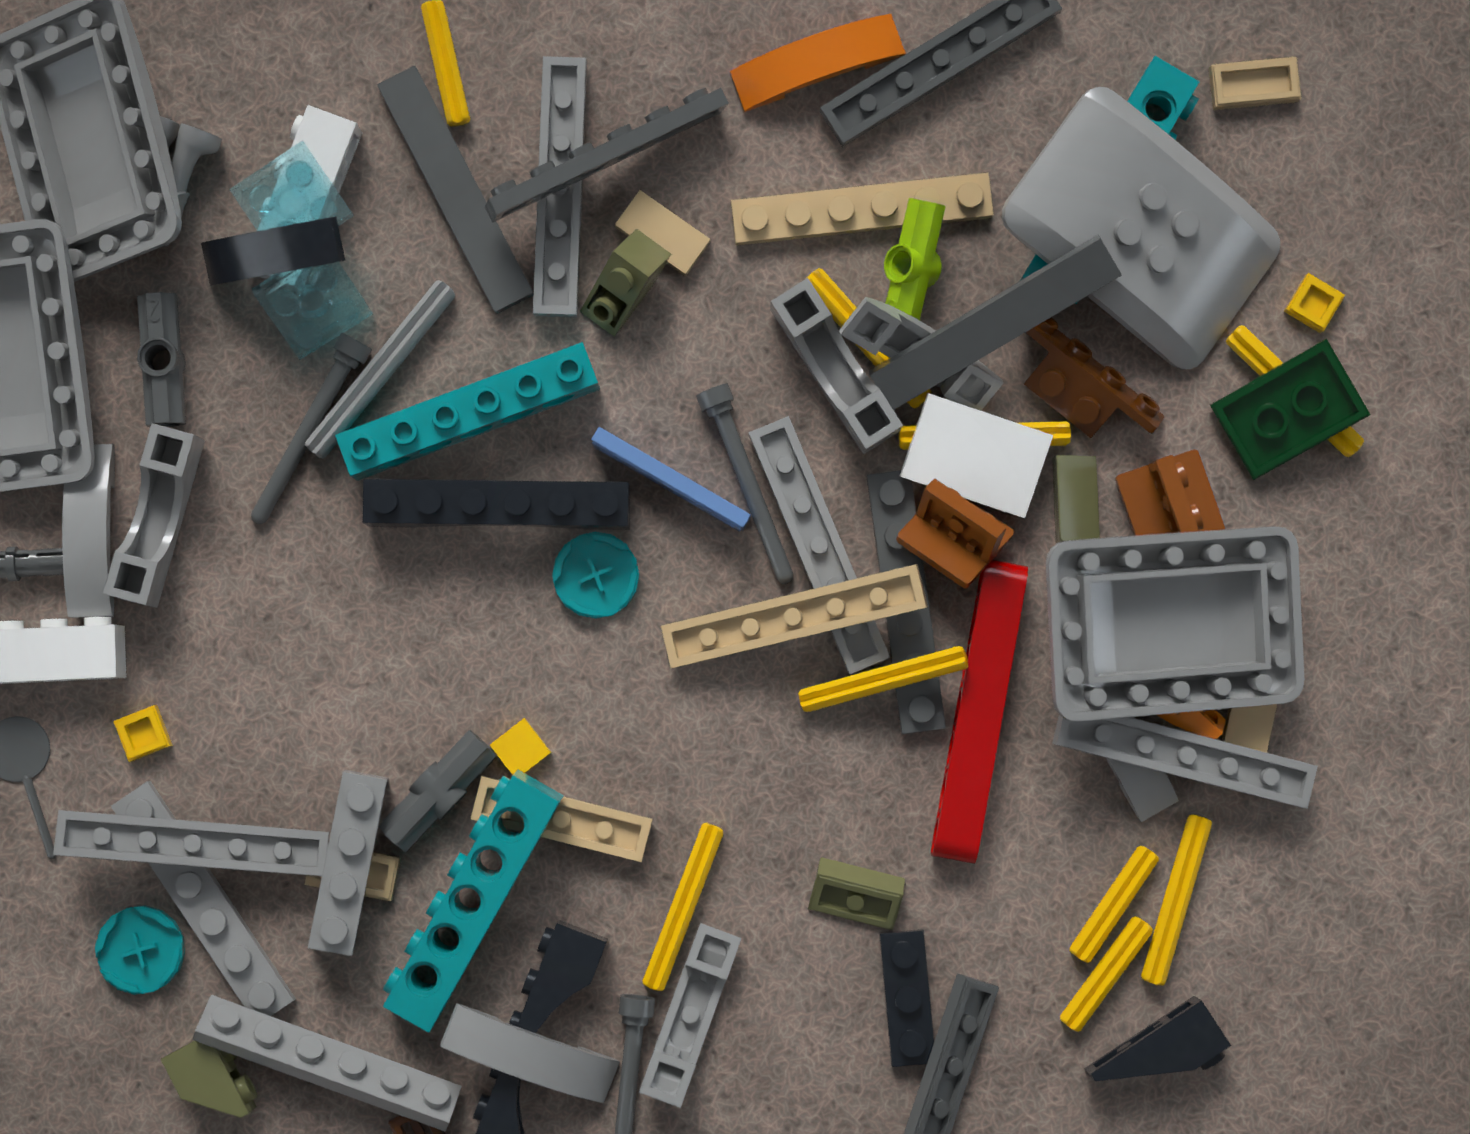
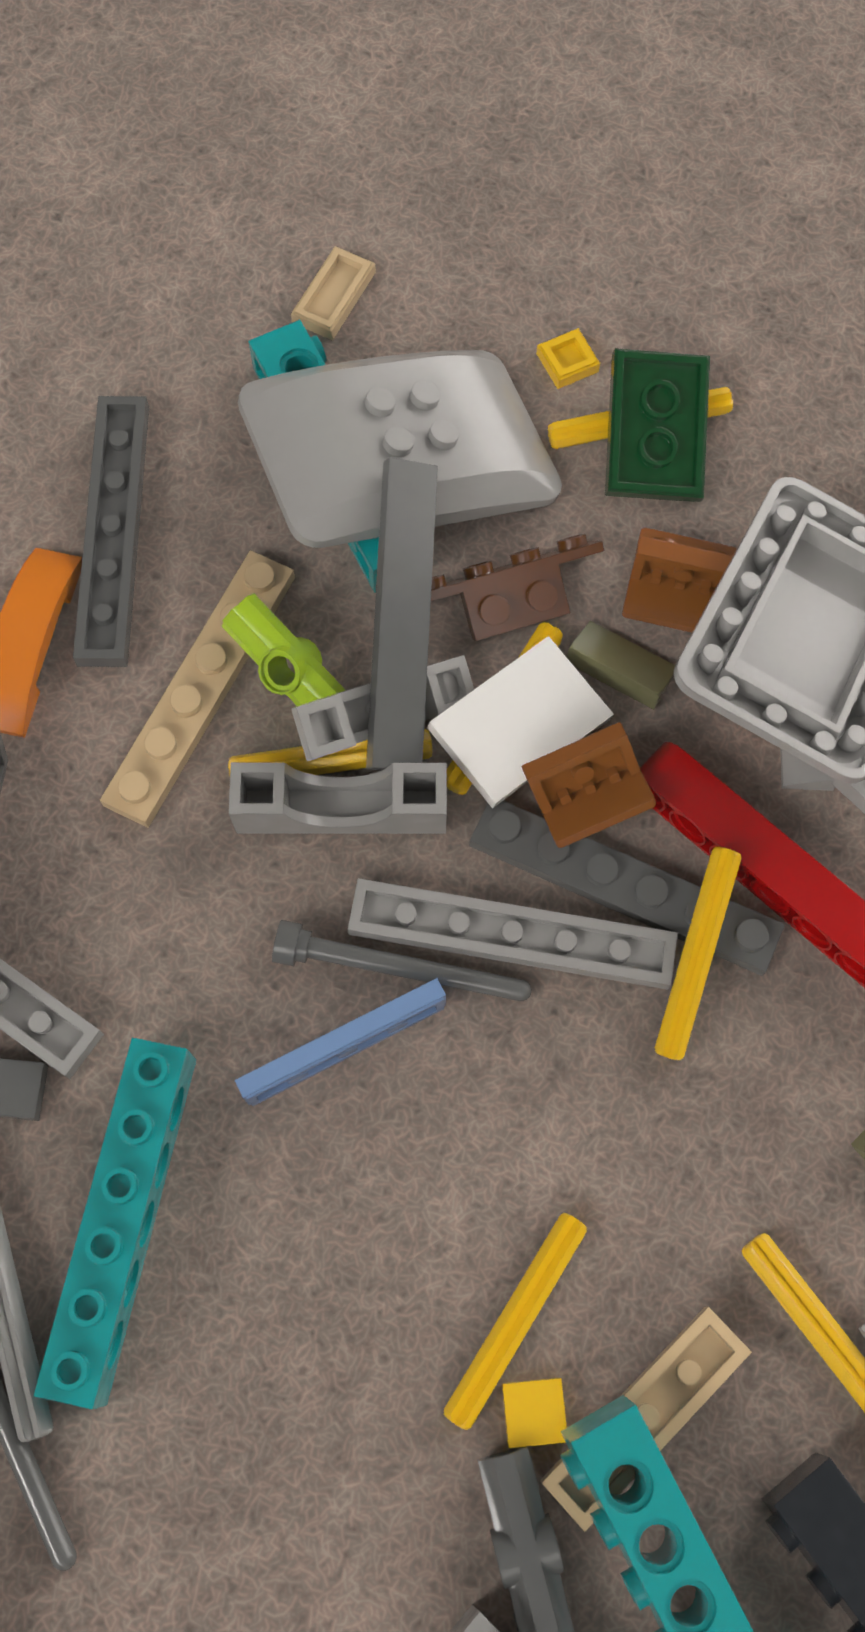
camera: 55 degrees left, 15 degrees down
(496, 503) = (235, 1260): black arch -> none
(568, 703) = (514, 1321): none -> yellow axle
(595, 575) = (392, 1194): teal tile -> none
(625, 281) = (103, 958): olive slope -> none
(665, 229) = (82, 890): tan tile -> none
(794, 616) = (574, 1005): tan plate -> none

